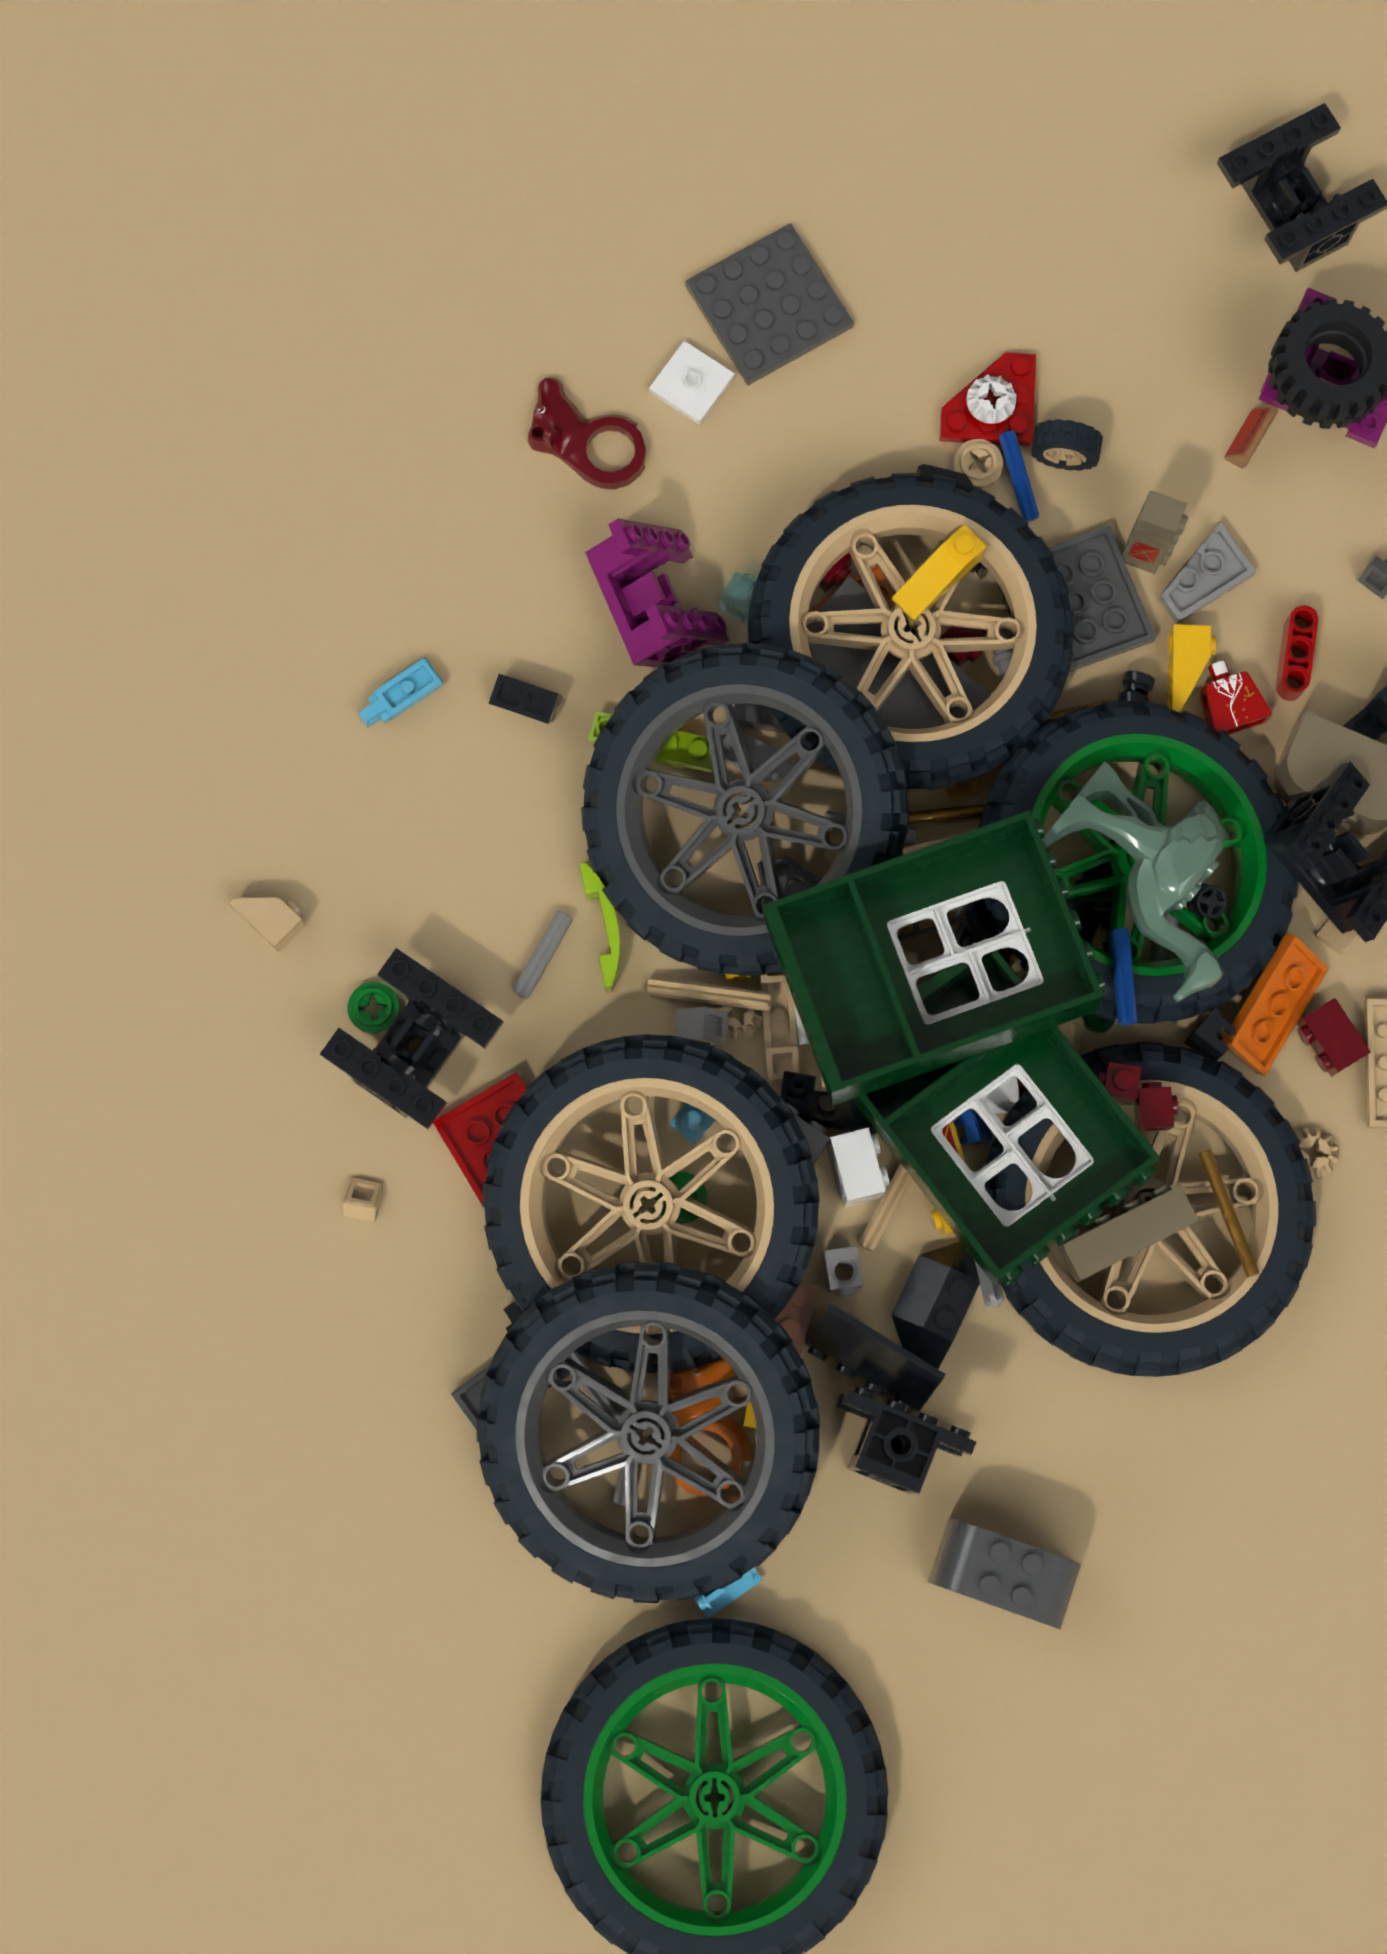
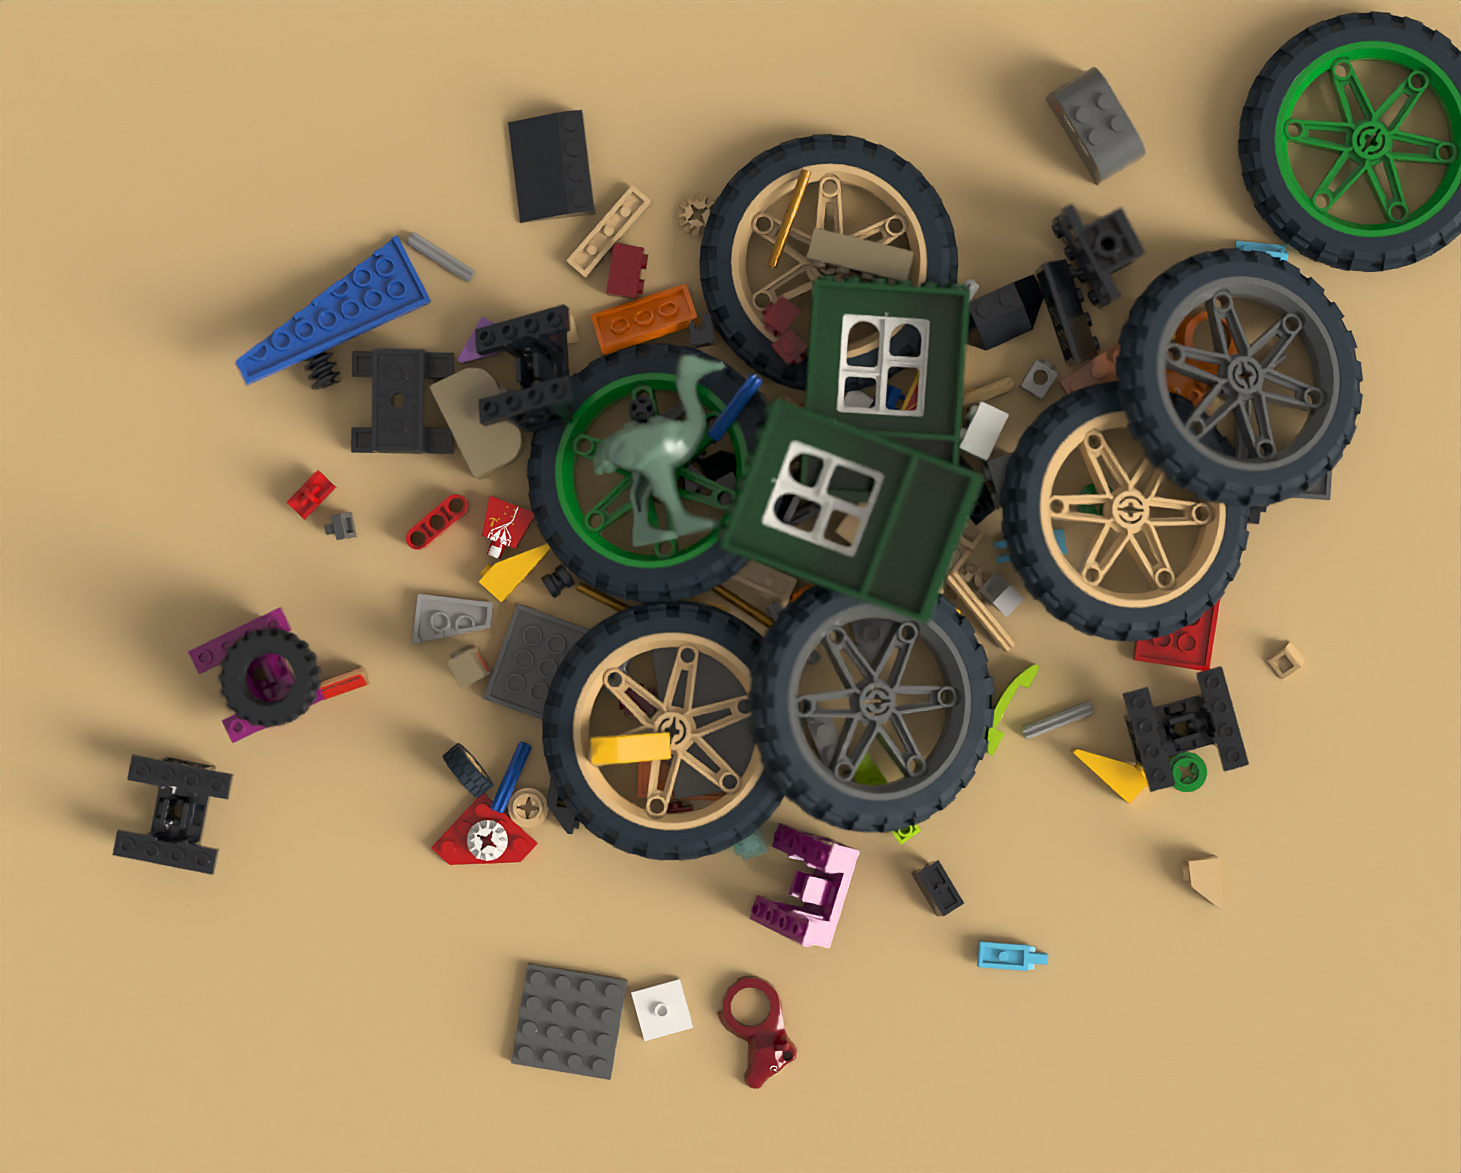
camera: 140 degrees left, 10 degrees up
(445, 947) = (1118, 775): none -> yellow slope

